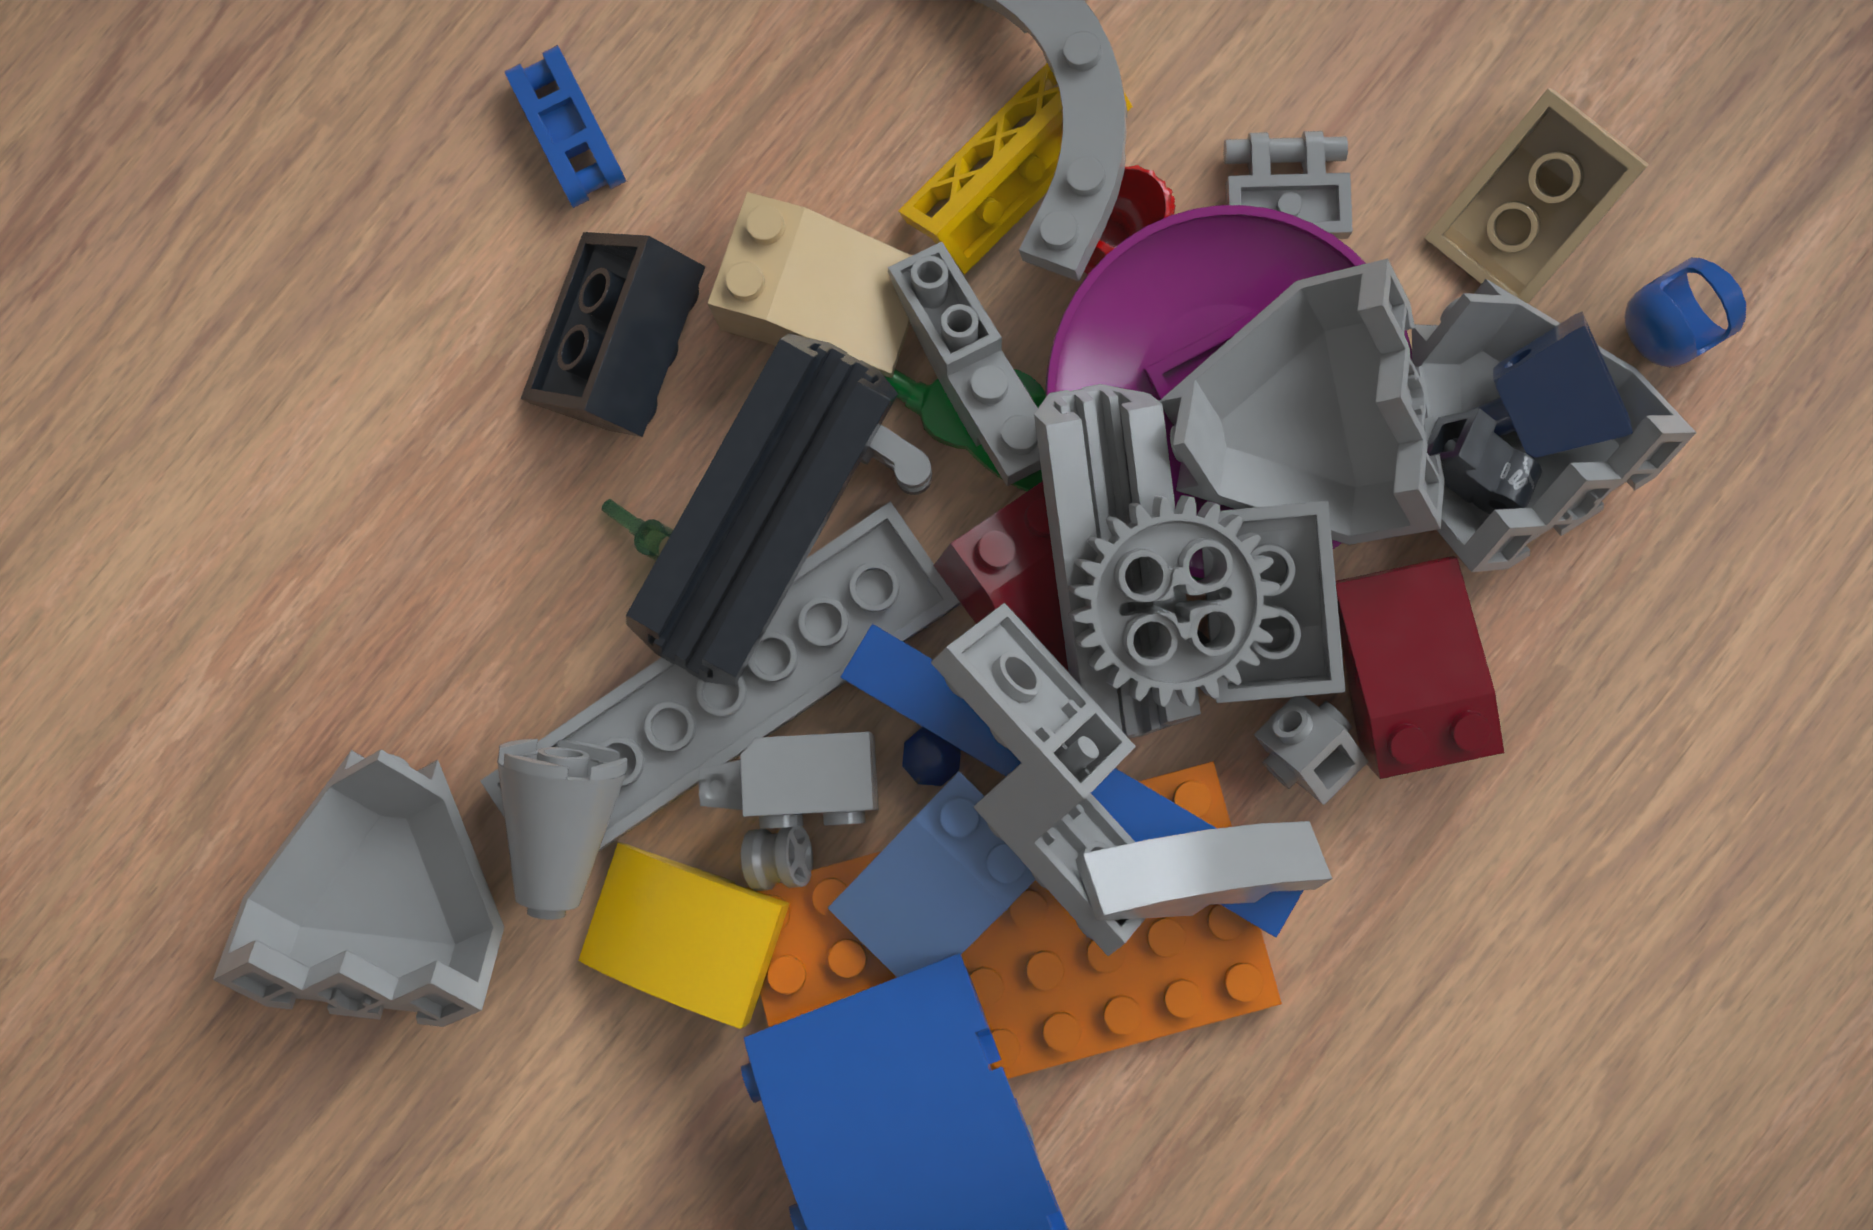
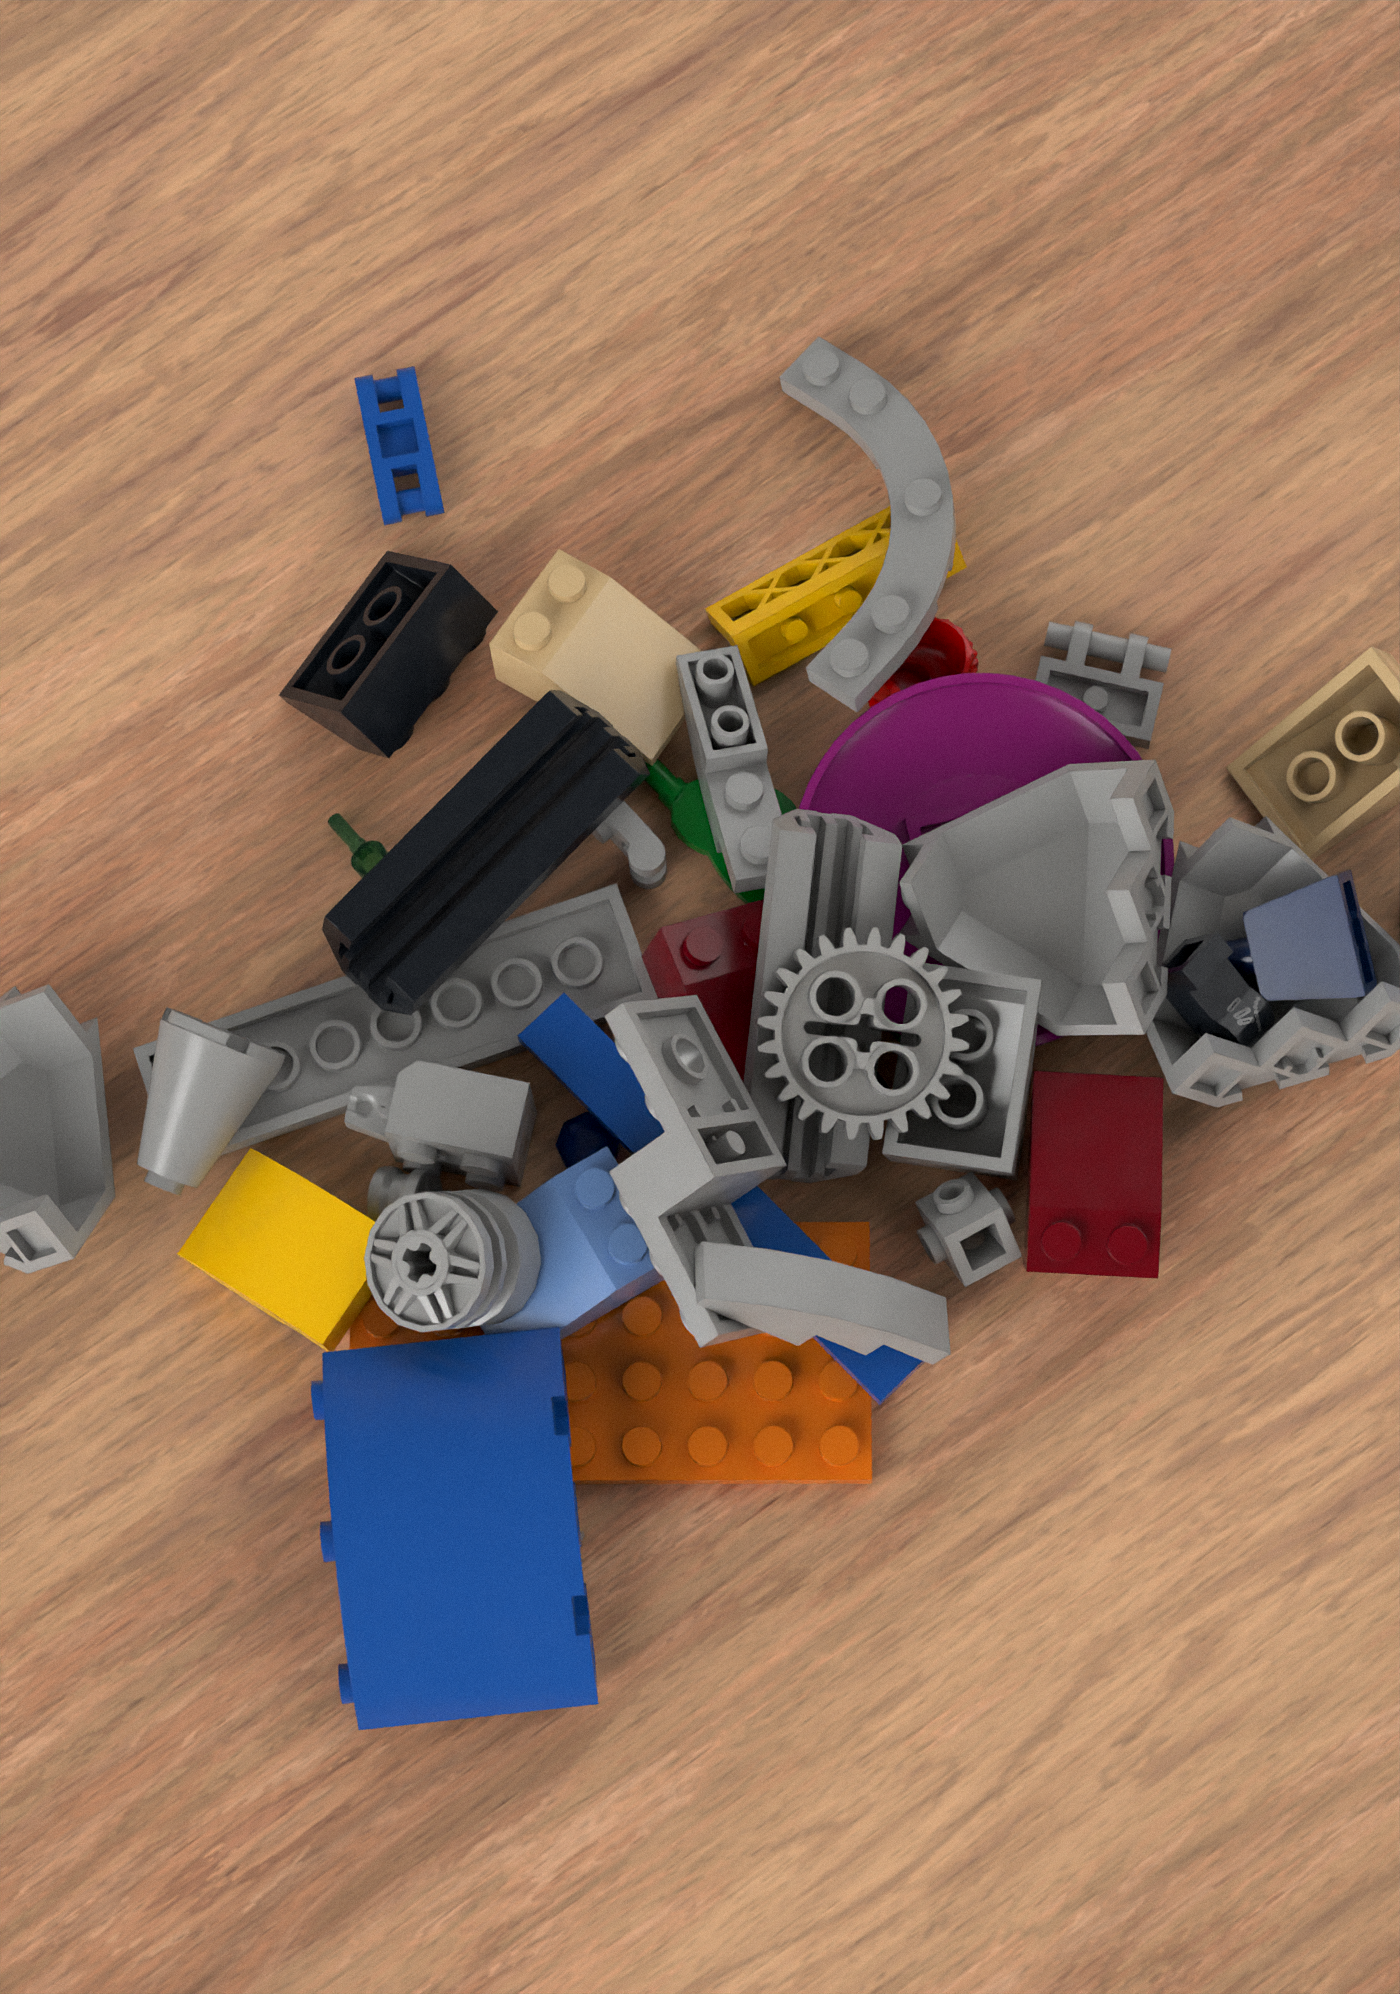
camera: 10 degrees right, 10 degrees down
(842, 923) = (452, 1259): none -> light grey wheel

